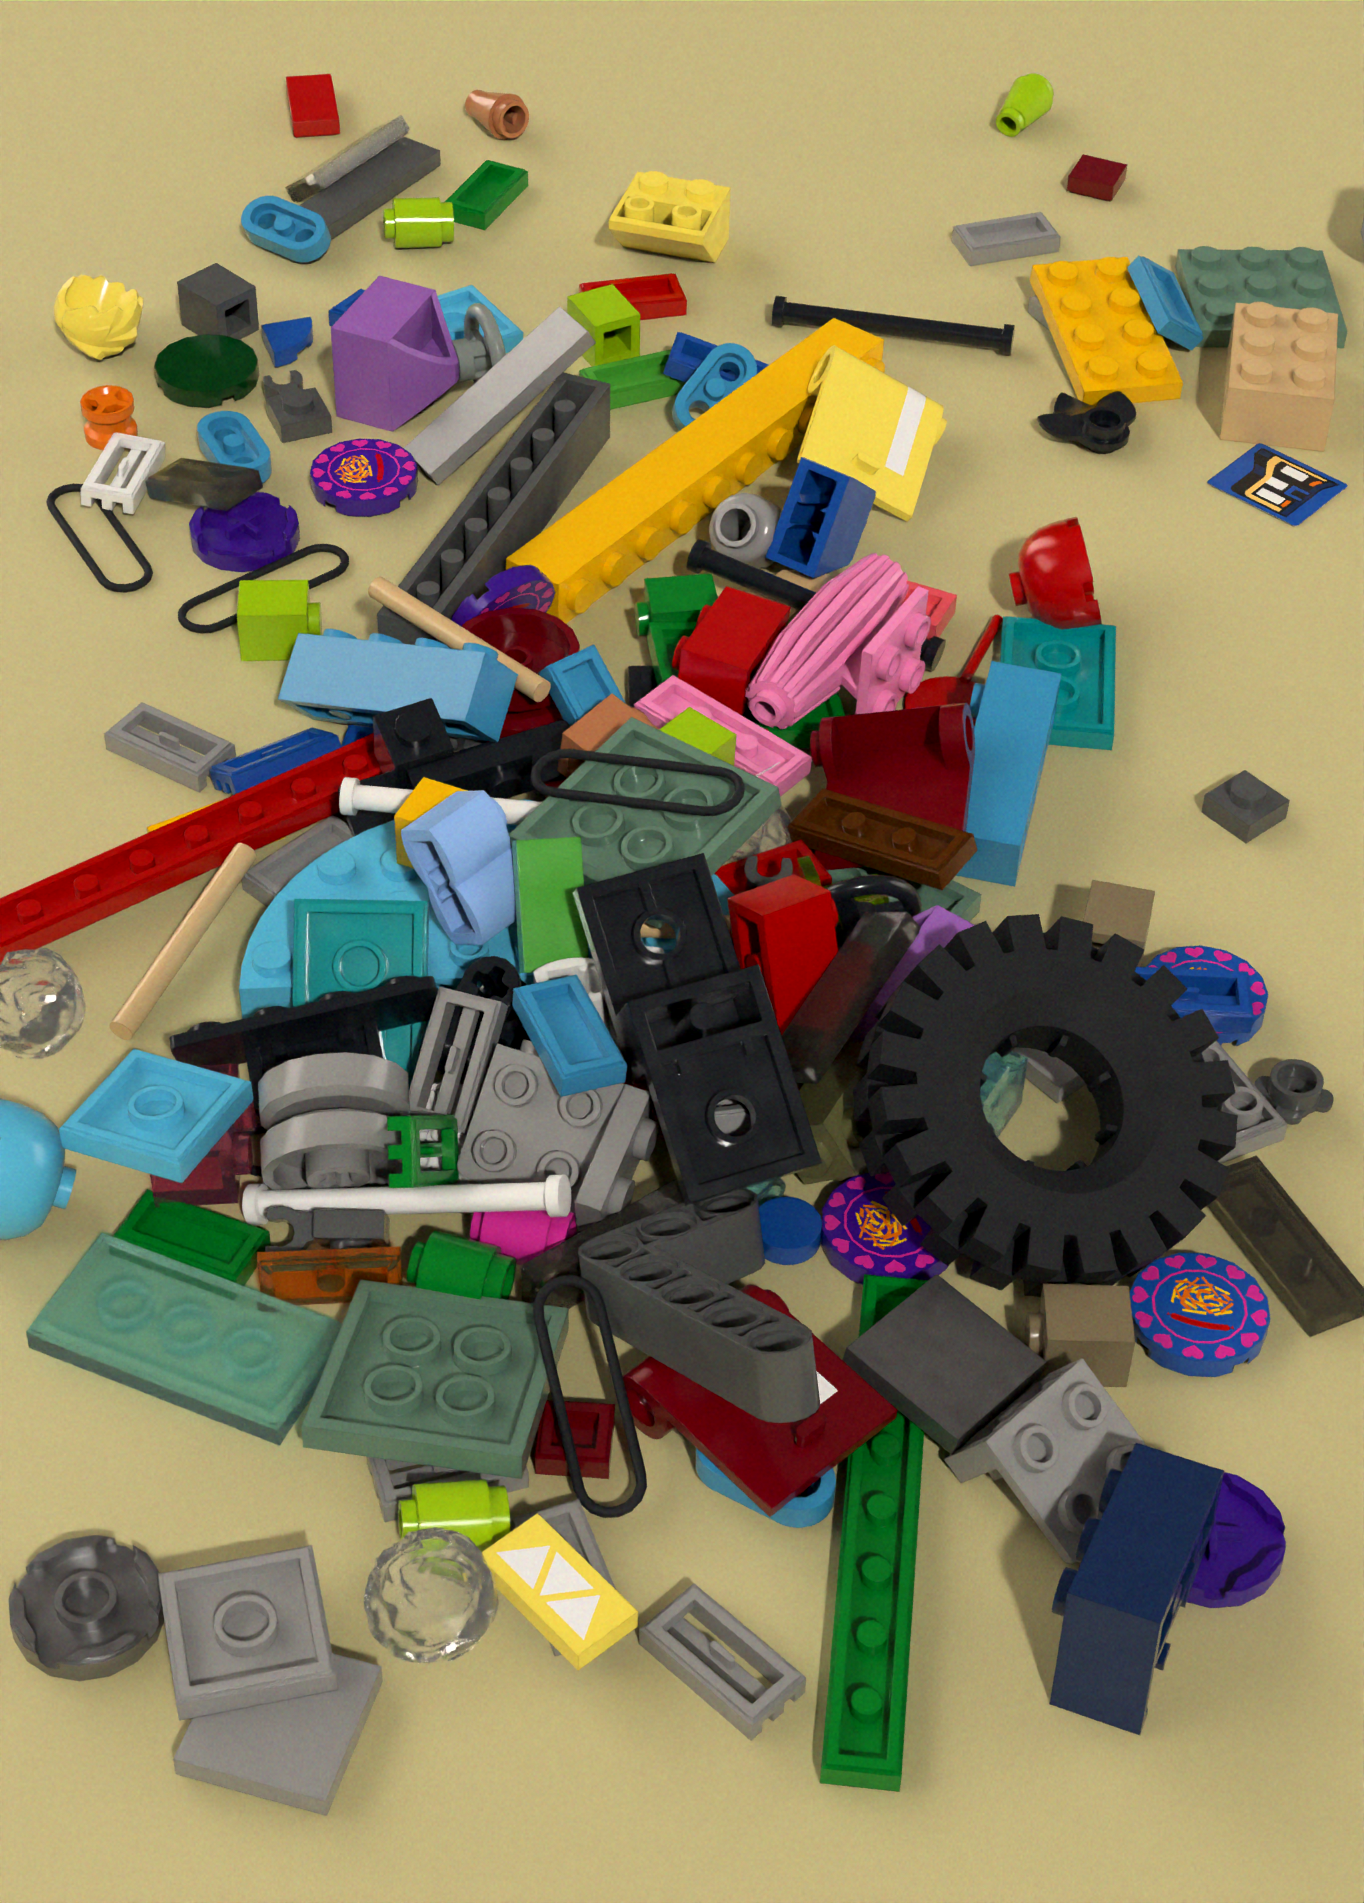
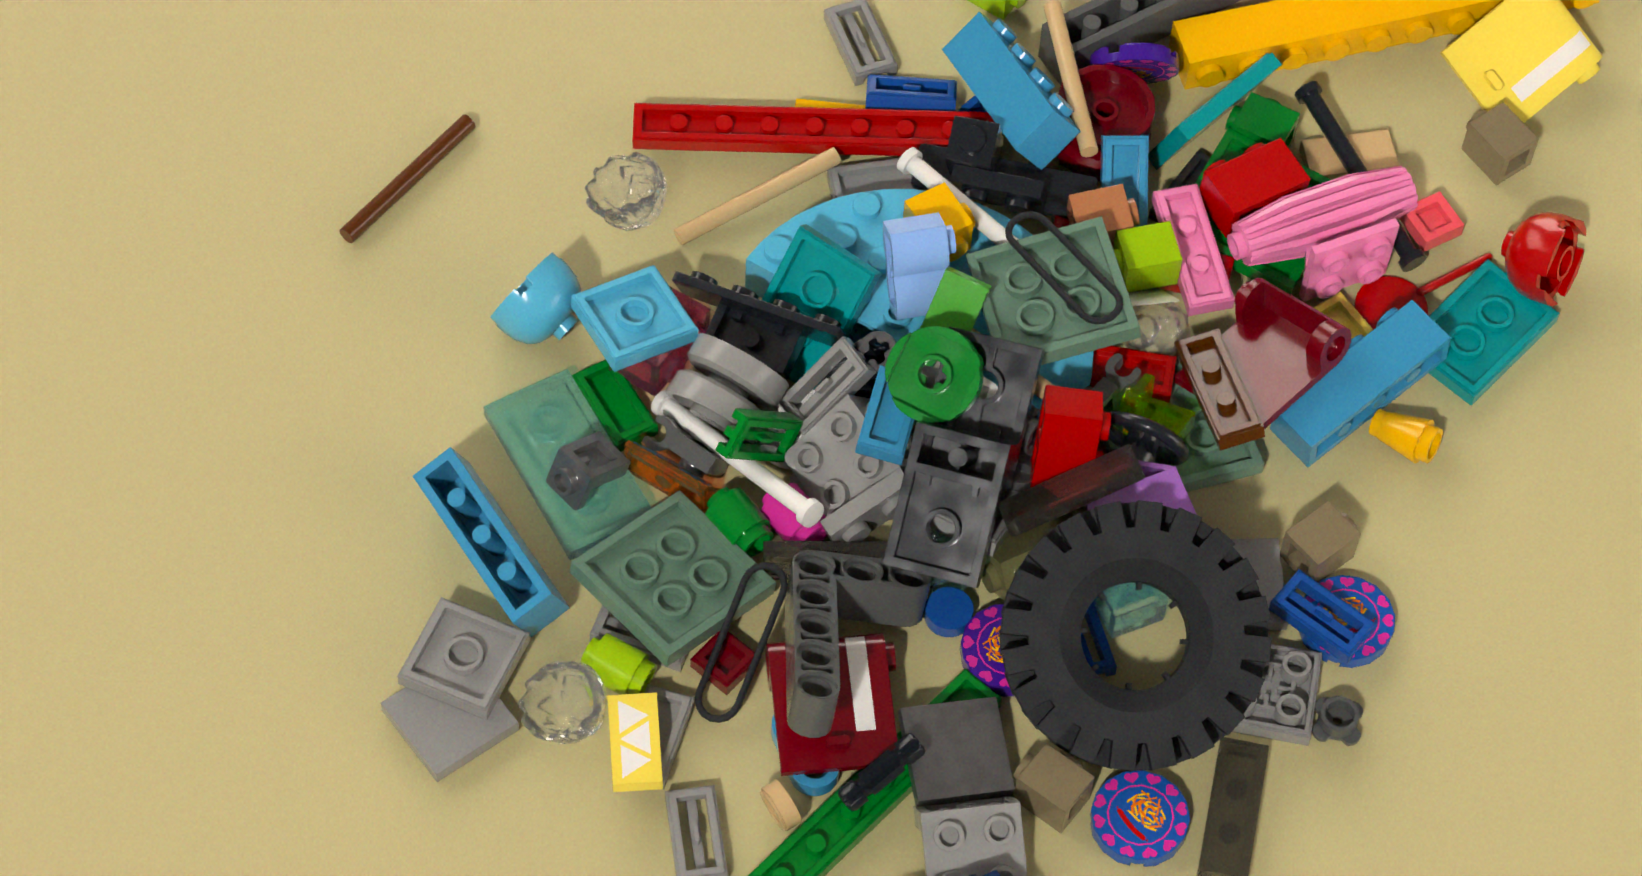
camera: 35 degrees right, 15 degrees up
(86, 1608) = (401, 589): flat silver tile -> none
(171, 1467) = (491, 542): none -> dark azure brick
(223, 1320) = (585, 466): none -> flat silver bracket
(626, 918) = (908, 383): none -> green plate
(628, 595) = (1213, 110): none -> teal tile
(745, 528) = (1365, 89): light grey head -> none
(797, 1552) = (780, 805): none -> tan tile
(822, 518) = (1416, 112): blue torso -> none
(891, 1431) = (881, 772): none -> black axle
(919, 513) = (1499, 143): none -> dark tan brick
(1087, 797) = (1407, 434): none -> yellow cone
(1245, 806) = (1514, 504): dark grey plate -> none

